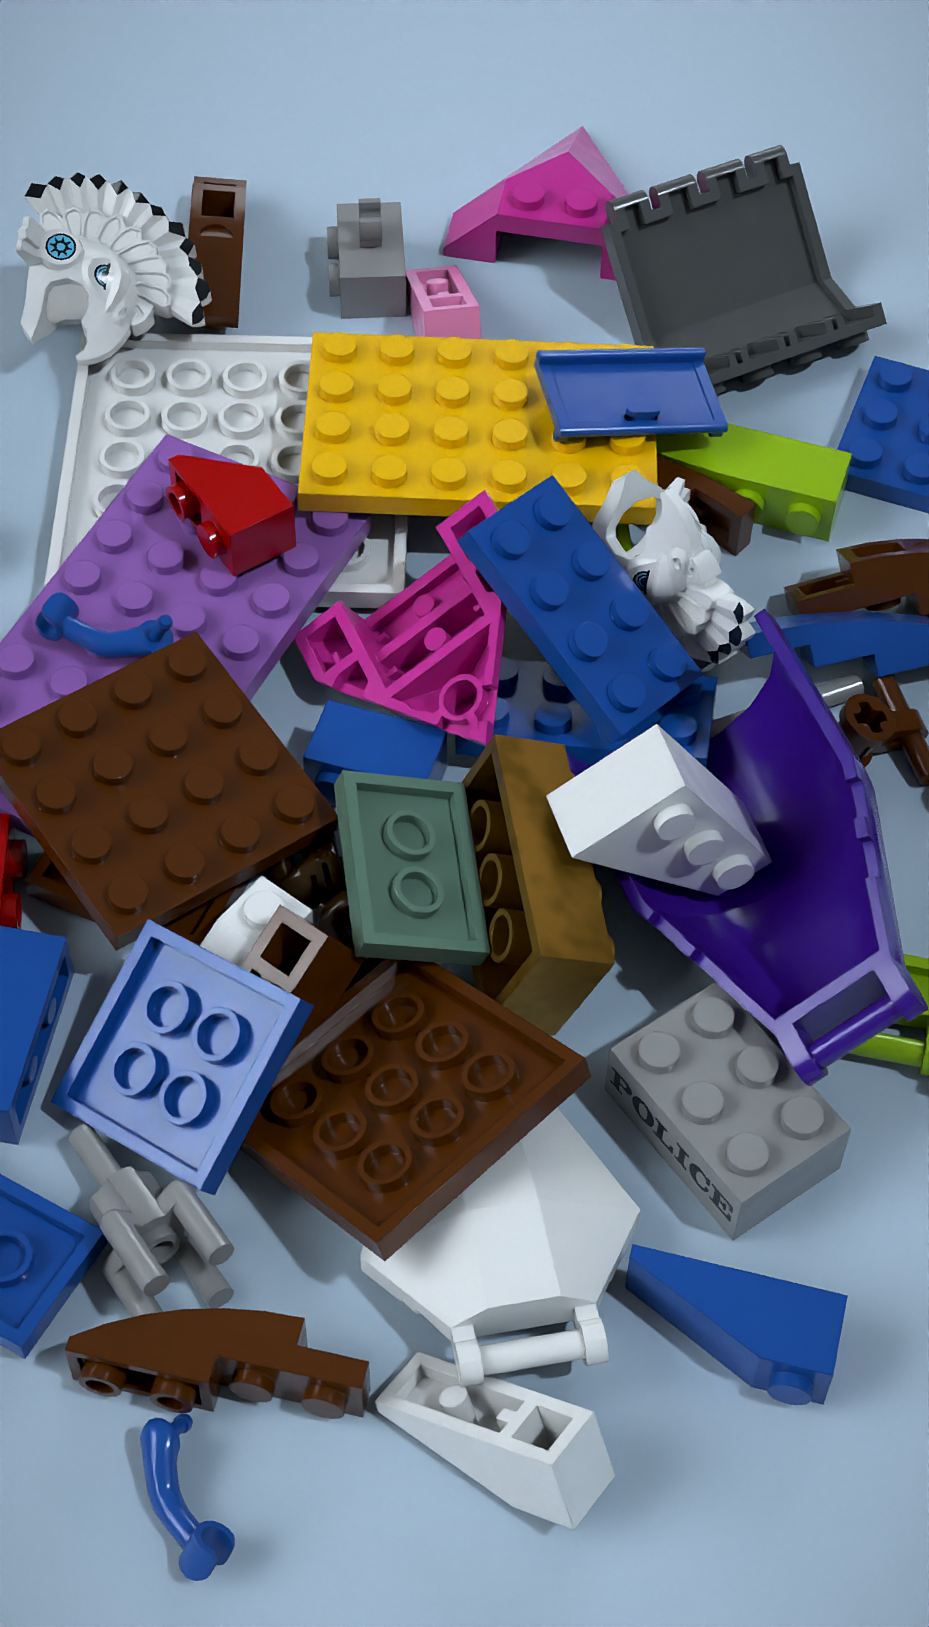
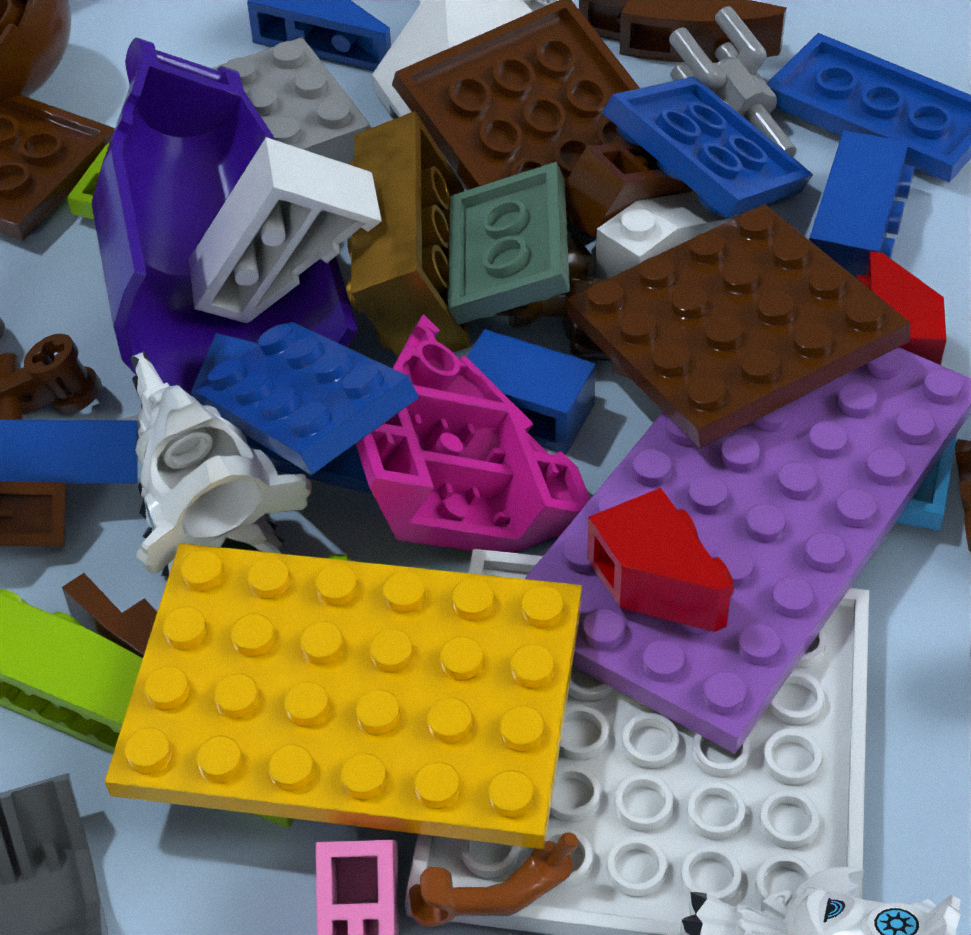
camera: 170 degrees left, 5 degrees down
(60, 621) = (841, 470): blue piece -> none
(384, 322) = (439, 902): none -> dark orange piece
(629, 392) = (127, 683): blue door -> none

